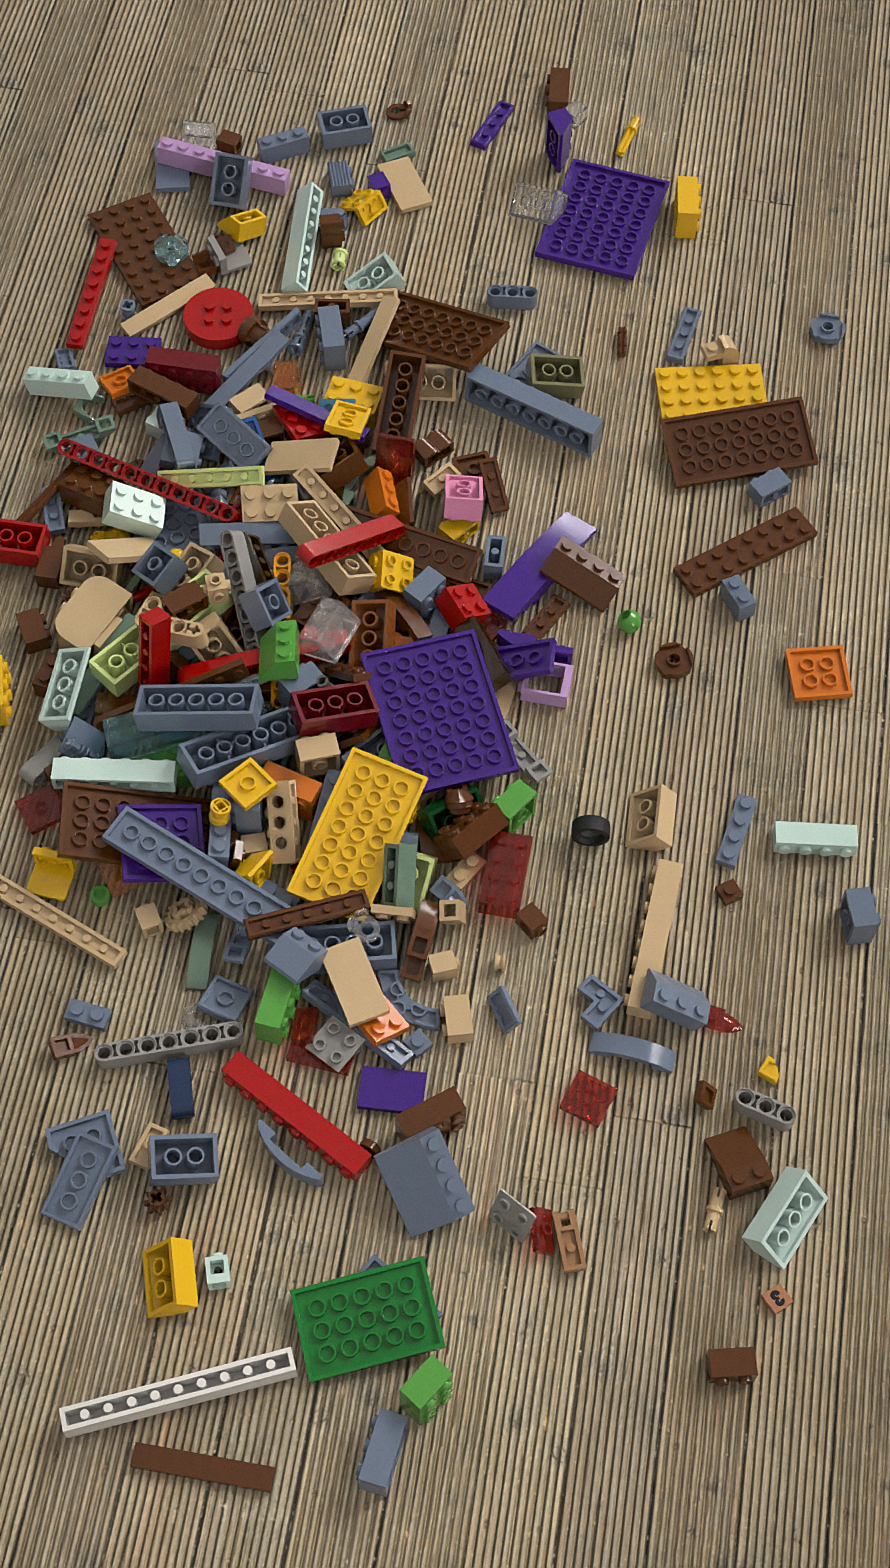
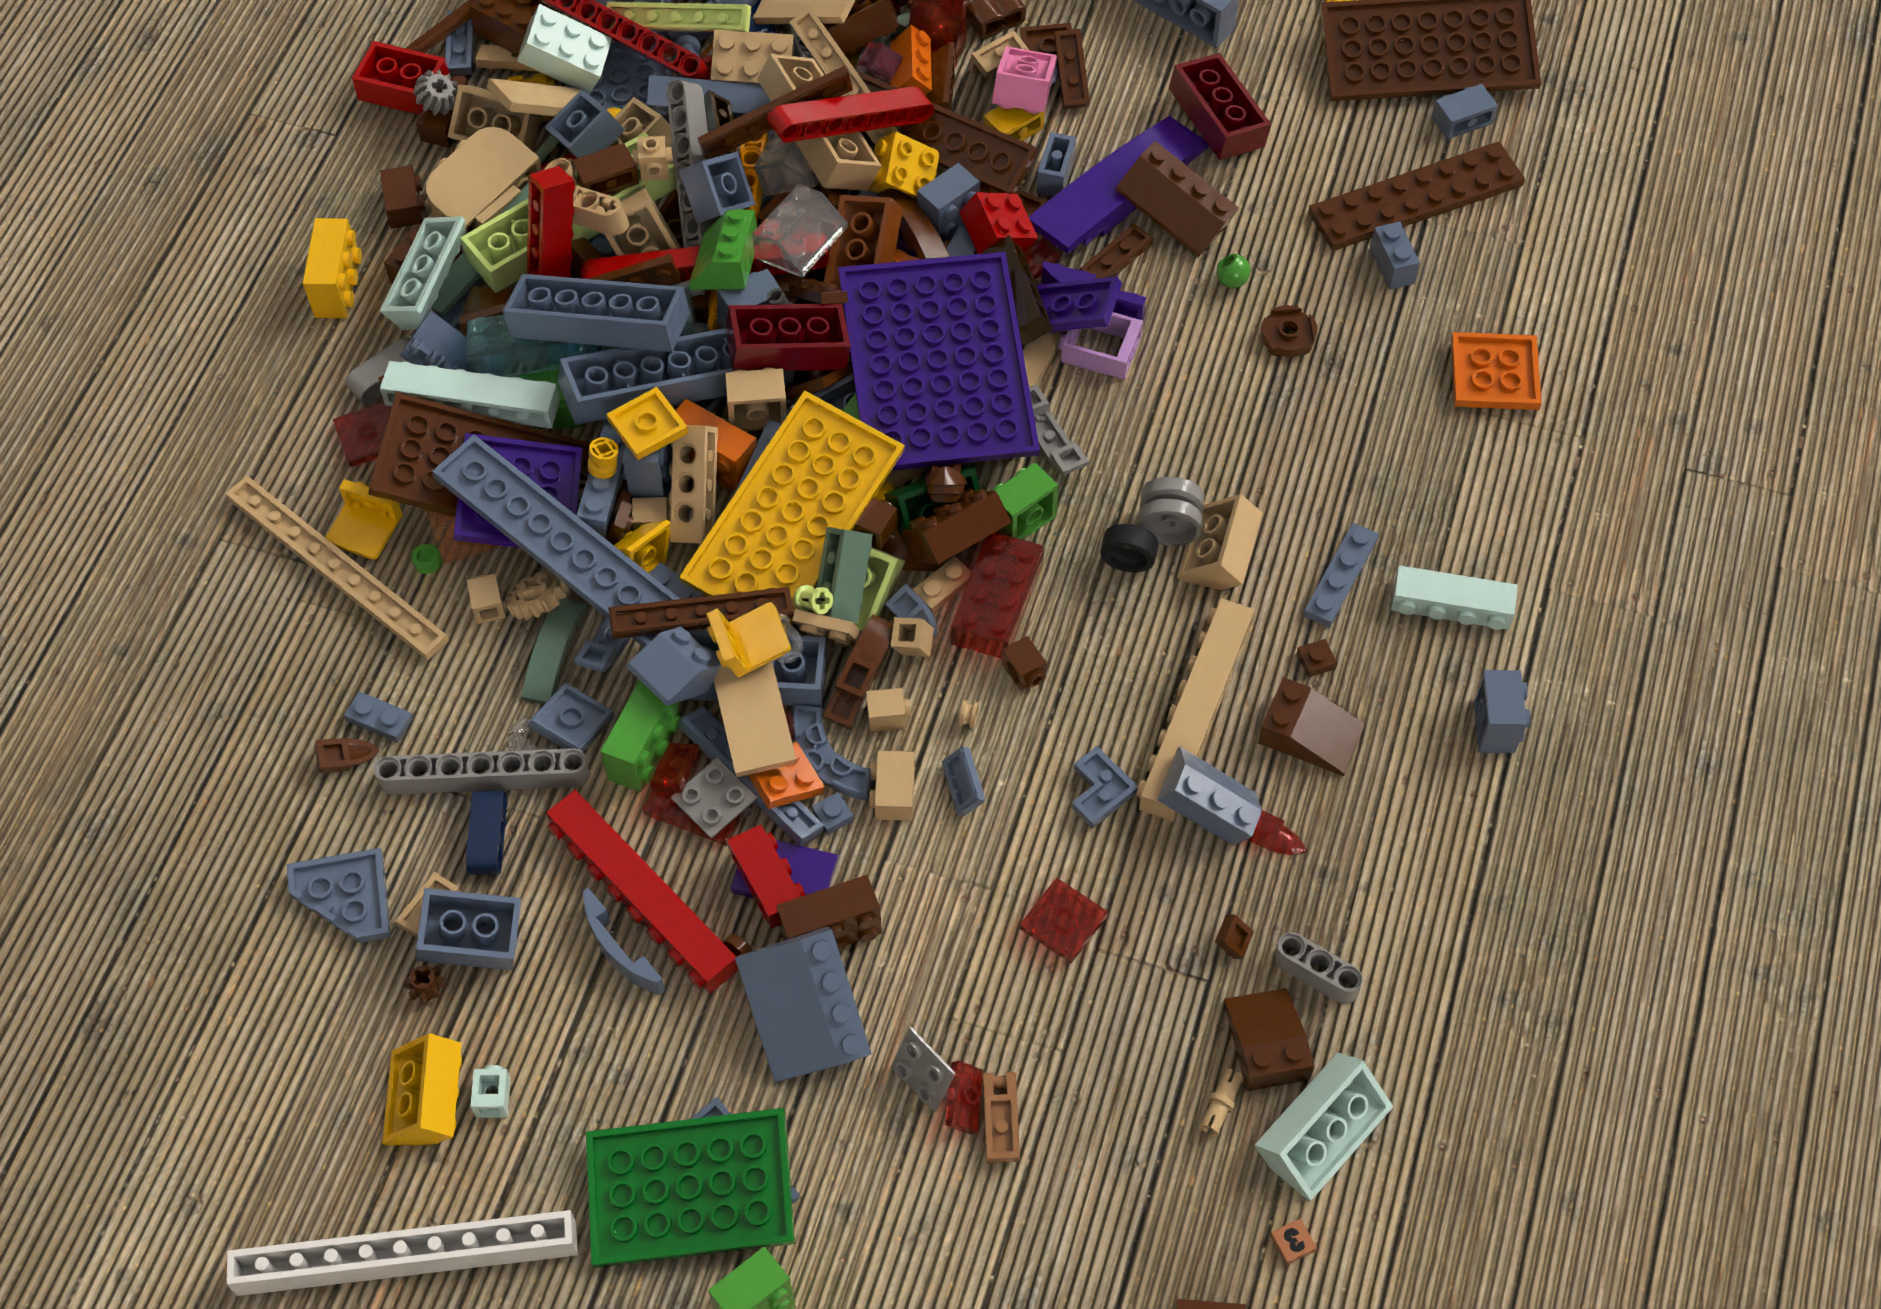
camera: 10 degrees right, 0 degrees up
(47, 552) = (436, 92): none -> light grey gear
(79, 1180) = (321, 940): sand blue tile -> none
(288, 553) = (755, 122): none -> reddish brown tile
(344, 929) = (749, 639): none -> yellow bracket
(359, 494) = (880, 60): none -> clear pink brick
(380, 1092) = (764, 871): none -> red brick
(382, 895) = (812, 594): none -> yellowish green bush
(416, 833) = (878, 519): none -> reddish brown brick
(601, 502) = (1219, 106): none -> dark red brick
(616, 800) = (1172, 510): none -> light grey wheel
(634, 1049) = (1140, 859): sand blue slope -> none
(733, 942) = (1310, 727): none -> reddish brown slope
(769, 1070) = (1334, 915): yellow tile -> none

